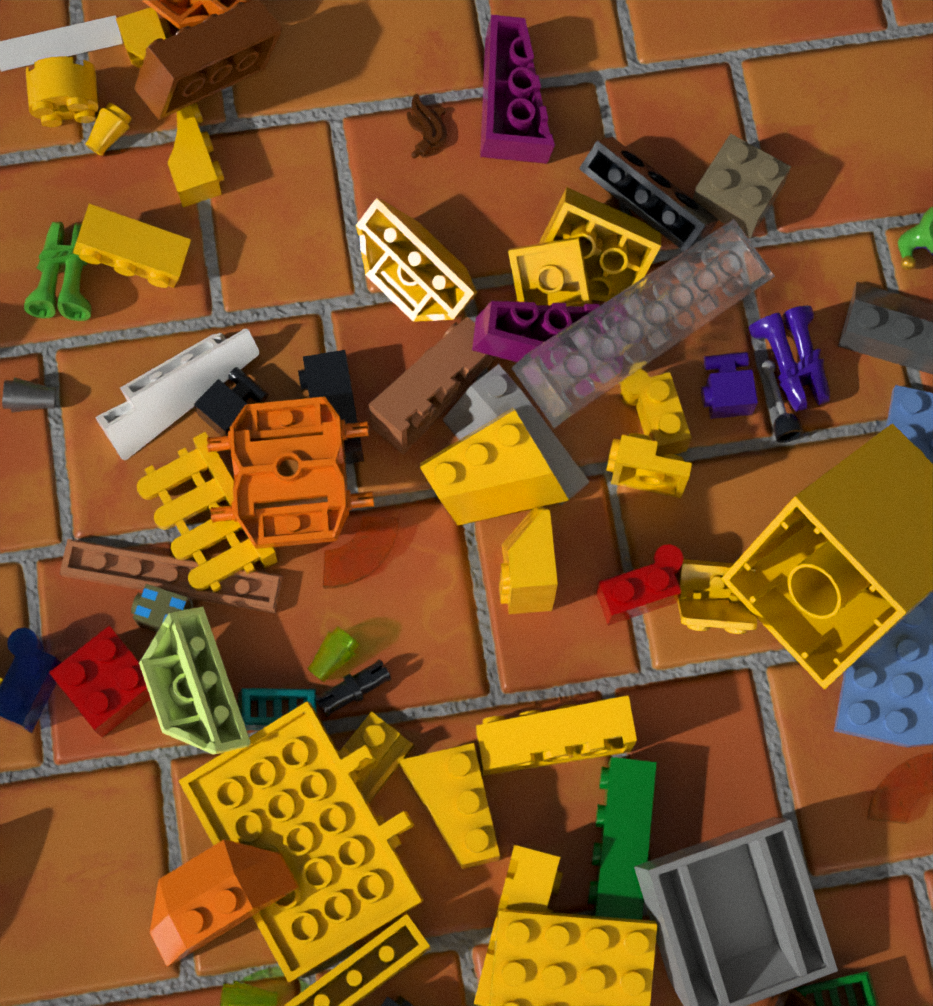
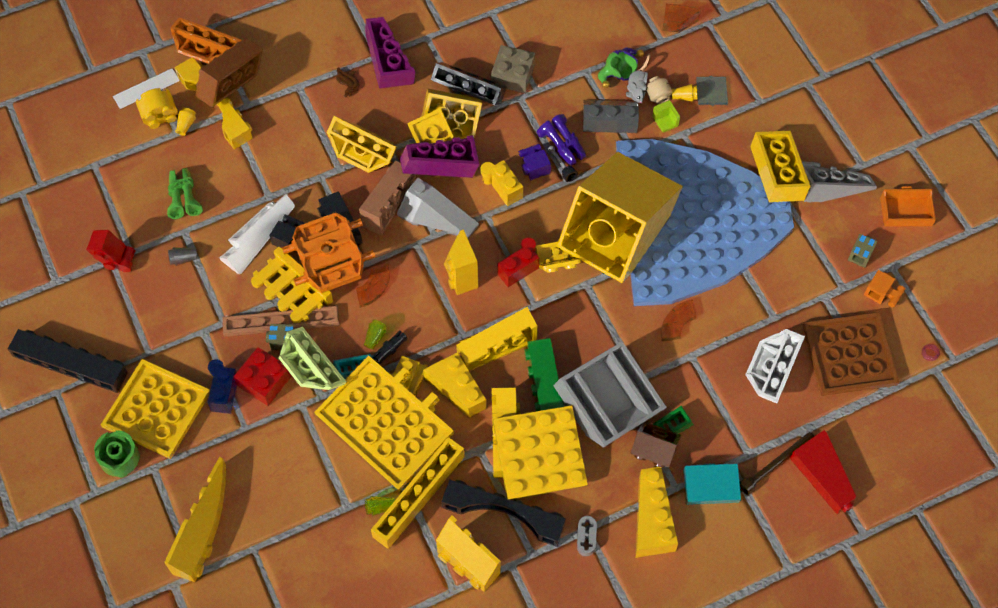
camera: 15 degrees left, 10 degrees down
(131, 247) = (215, 170): yellow brick -> none
(215, 895) = (348, 459): orange wedge -> none
(492, 472) = (429, 228): yellow wedge -> none
(638, 467) = (505, 208): yellow plate -> none
(642, 323) = (483, 138): clear brick -> none

